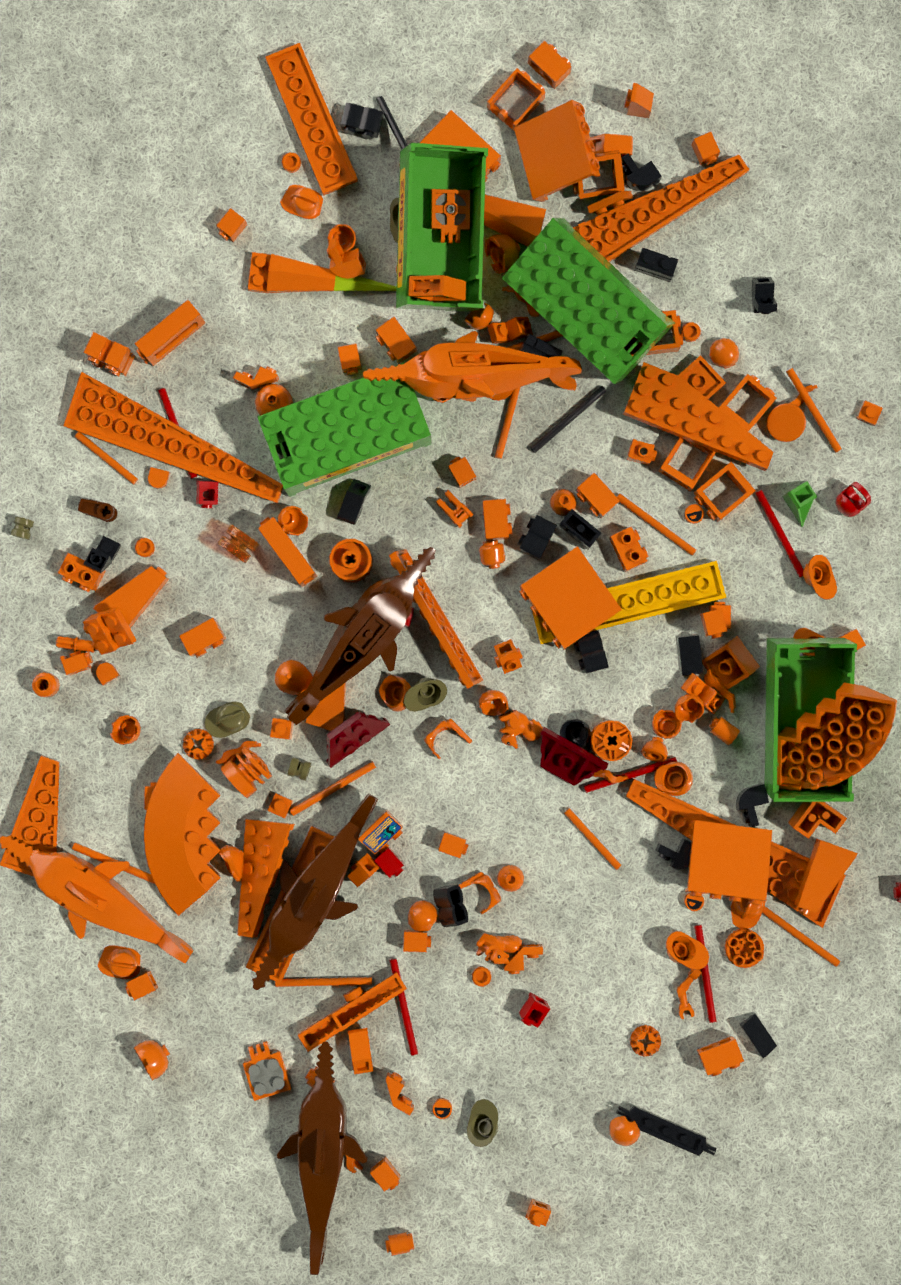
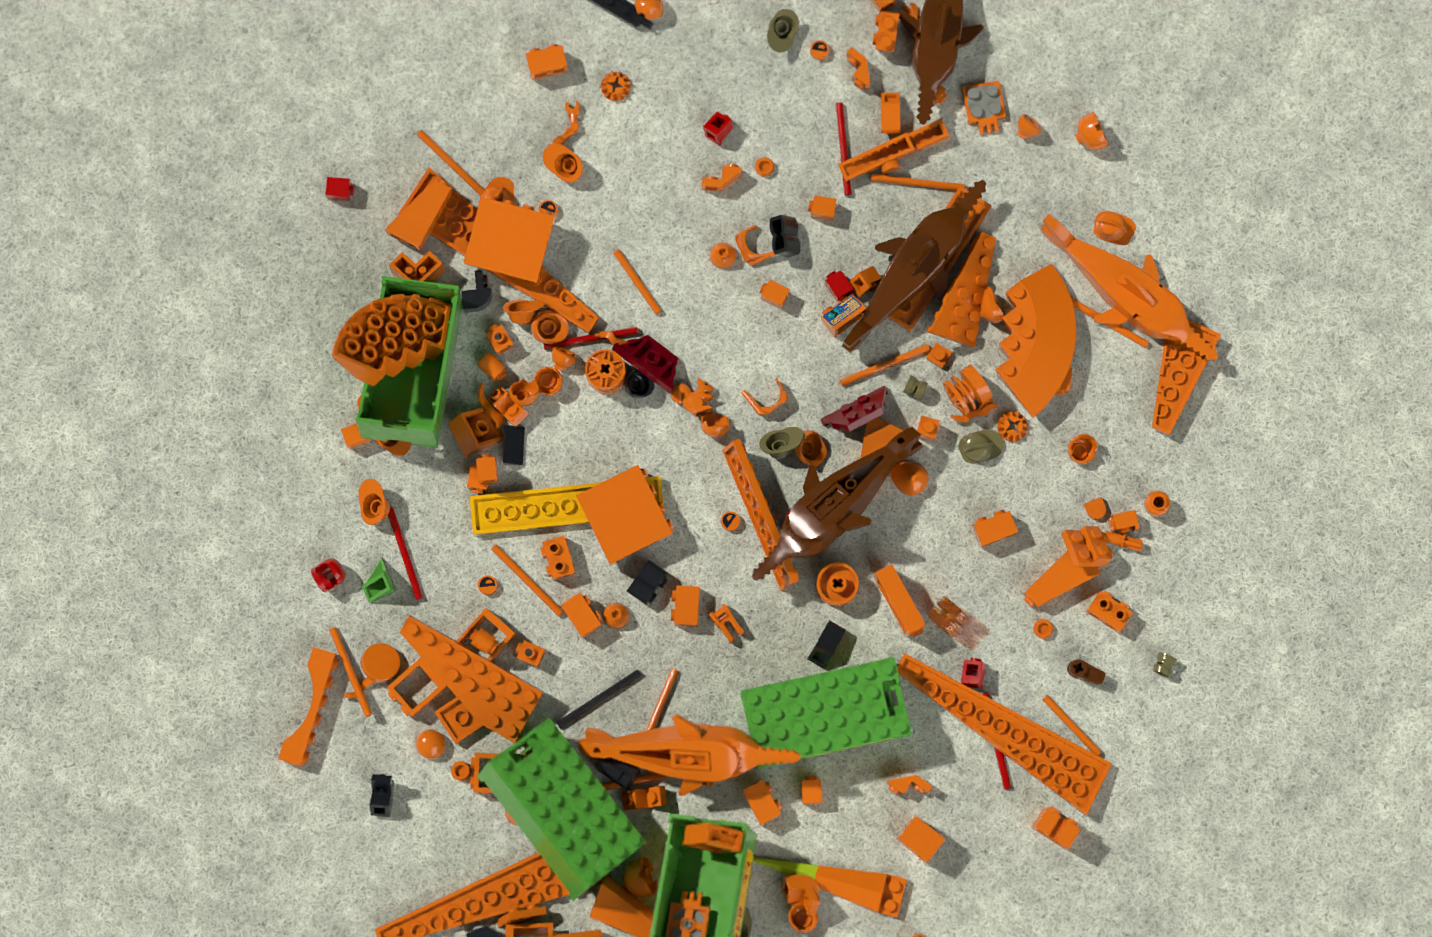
camera: 170 degrees left, 5 degrees down
(103, 555) = (1086, 625): black slope -> none
(141, 985) = (1095, 202): orange brick -> none
(158, 478) = (1021, 697): orange tile -> none
(169, 333) = (992, 841): orange piece -> none
(218, 1055) = (1028, 127): none -> orange brick
(238, 326) = (920, 839): none -> orange piece
(269, 393) = (884, 757): orange cylinder -> none
(293, 520) = (890, 632): orange hair -> none
(375, 1143) = (887, 30): none -> orange brick
(422, 916) = (813, 230): orange hair -> none
(461, 471) = (714, 659): orange brick -> none
(464, 610) = (730, 521): none -> orange tile
(480, 318) = (674, 808): orange hair -> none
(492, 554) = (695, 572): orange head -> none
(496, 945) = (746, 192): orange animal -> none
(507, 660) = (694, 467): orange brick -> none
(580, 529) = (604, 583): black brick -> none
(591, 652) = (610, 459): black brick -> none
(656, 265) = (485, 843): black brick -> none
(680, 858) = (556, 251): black brick -> none
(689, 453) = (483, 641): none -> orange brick
(704, 792) = (522, 310): none -> orange piece
(706, 980) = (548, 135): red piece -> none
(715, 759) = (502, 345): none -> orange brick
(739, 480) = (444, 623): orange window -> none
(744, 948) = (507, 159): orange tile -> none
(758, 1035) = (507, 76): black slope -> none
(843, 409) = (296, 747): none -> orange arch
(869, 413) = (294, 662): orange plate -> none

